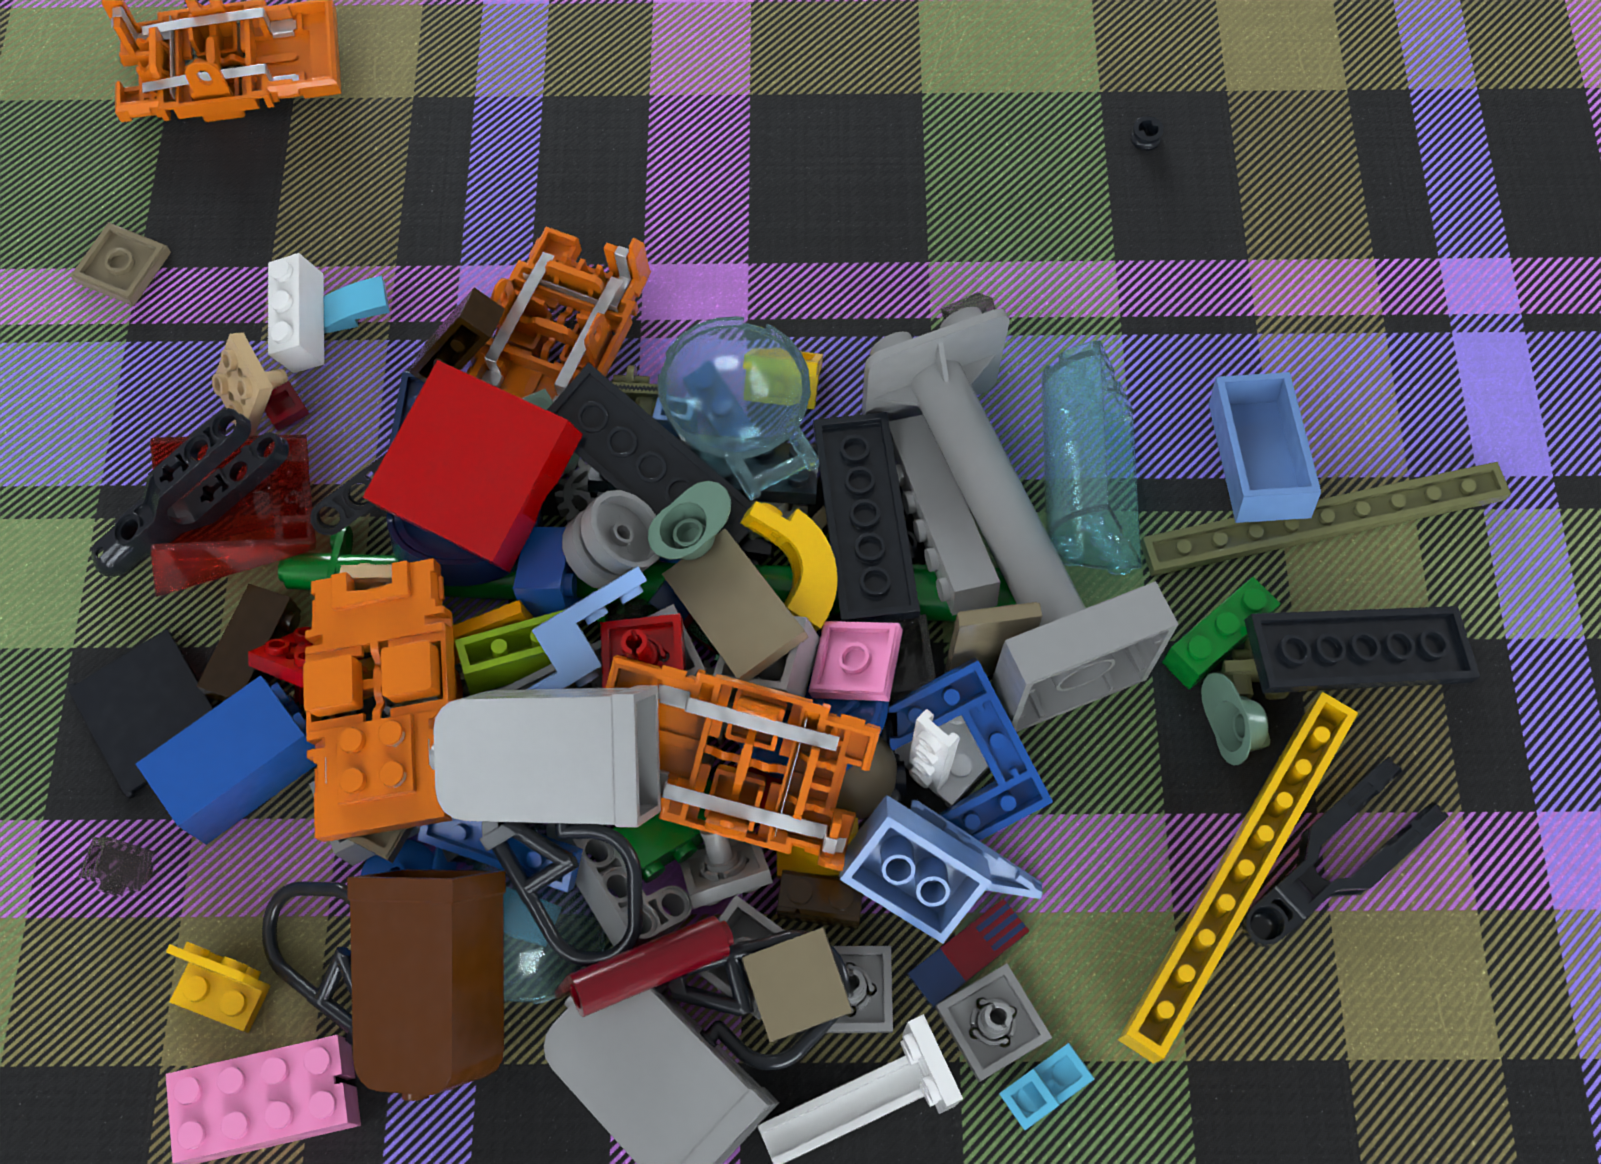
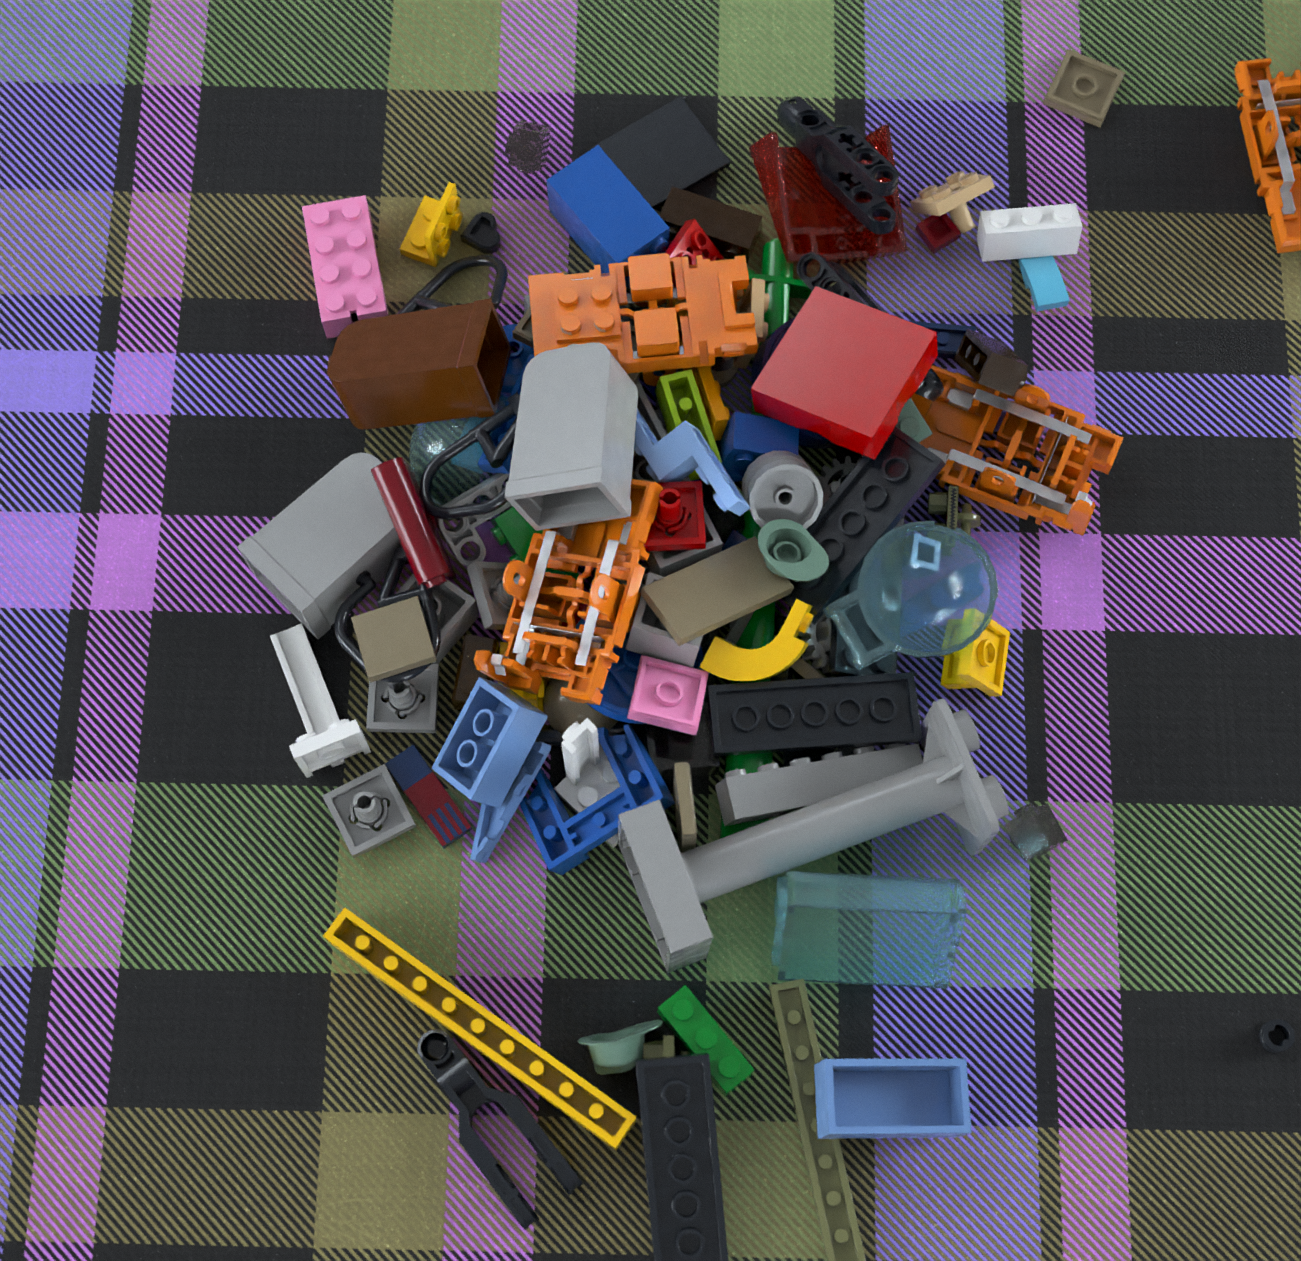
camera: 90 degrees right, 5 degrees up
(232, 925) = (482, 233): none -> black tile
(1046, 1086) = (317, 852): medium azure slope -> none

